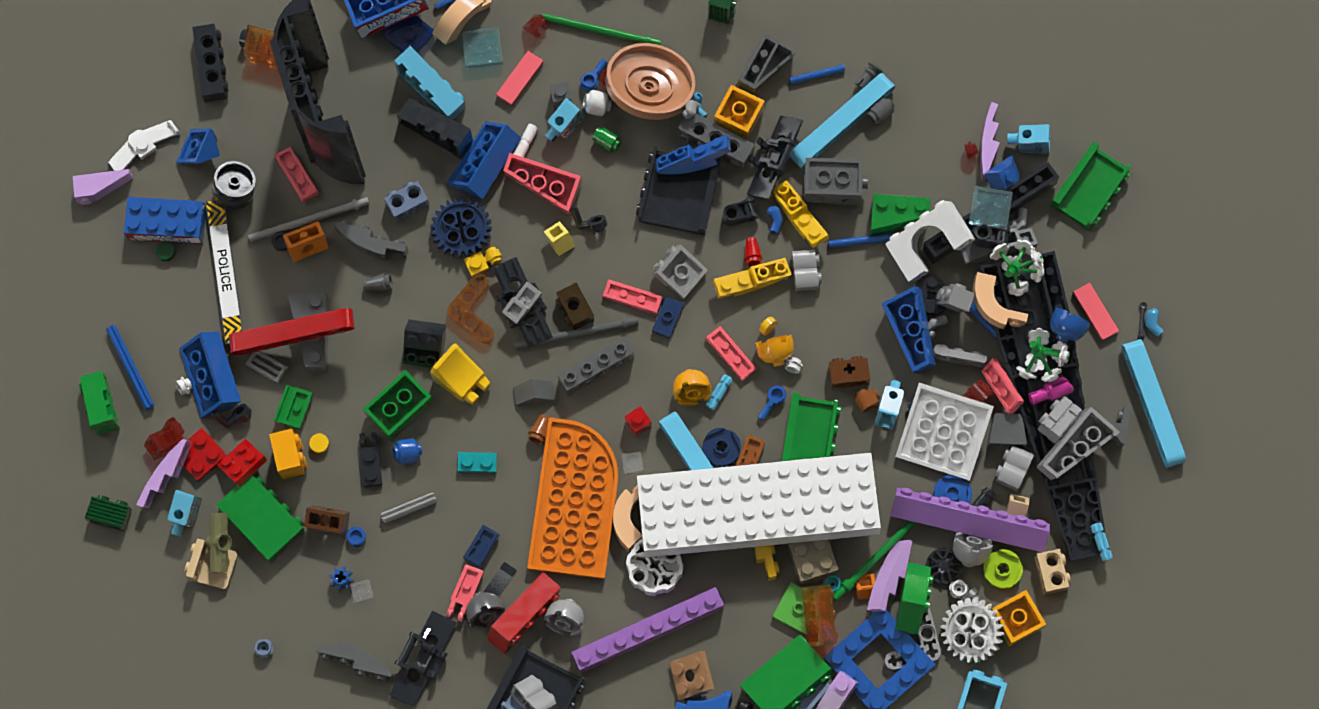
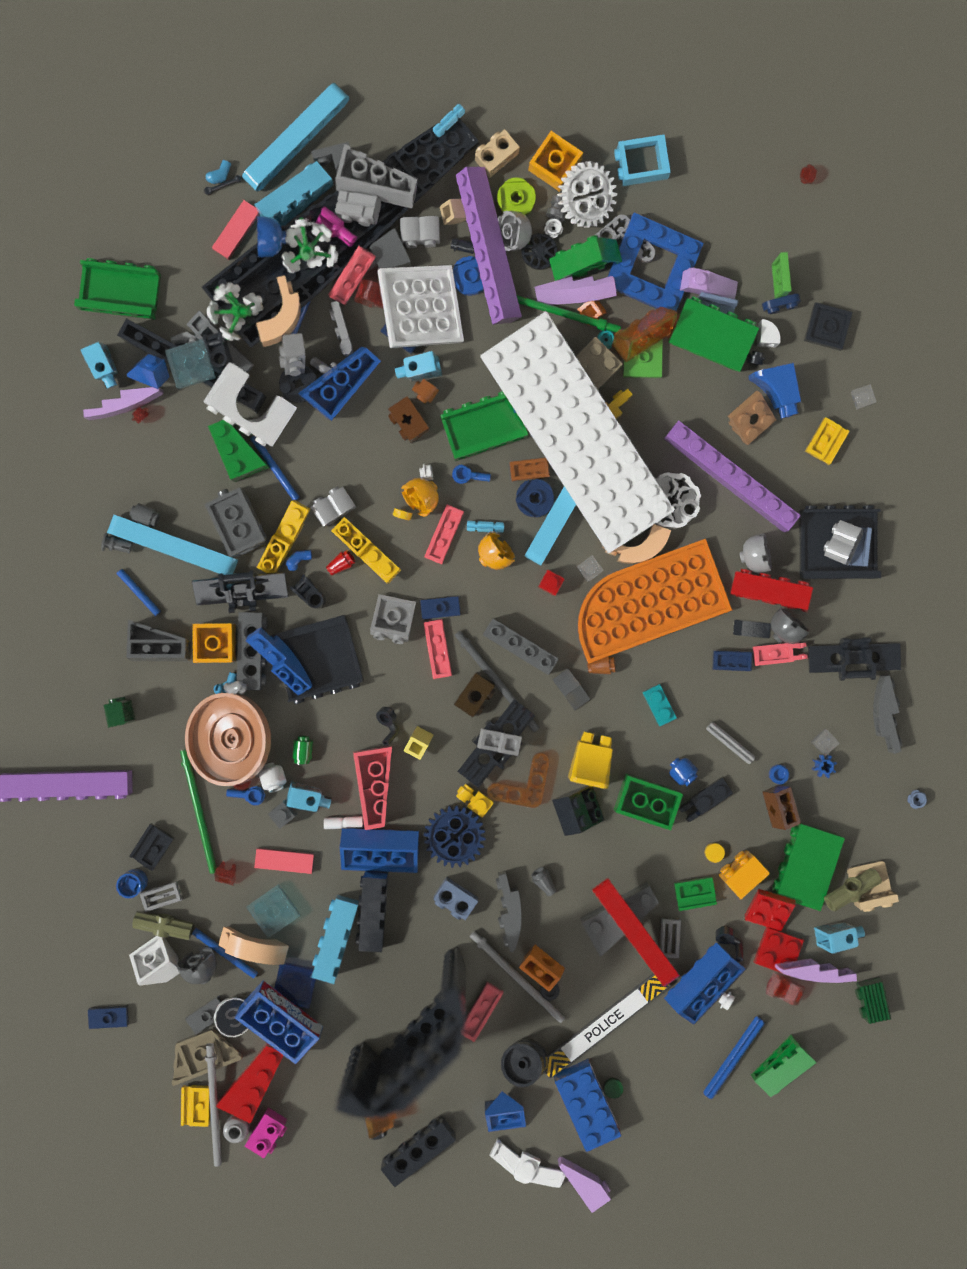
camera: 120 degrees left, 15 degrees up
(1099, 372) = (295, 194): none -> medium azure wedge

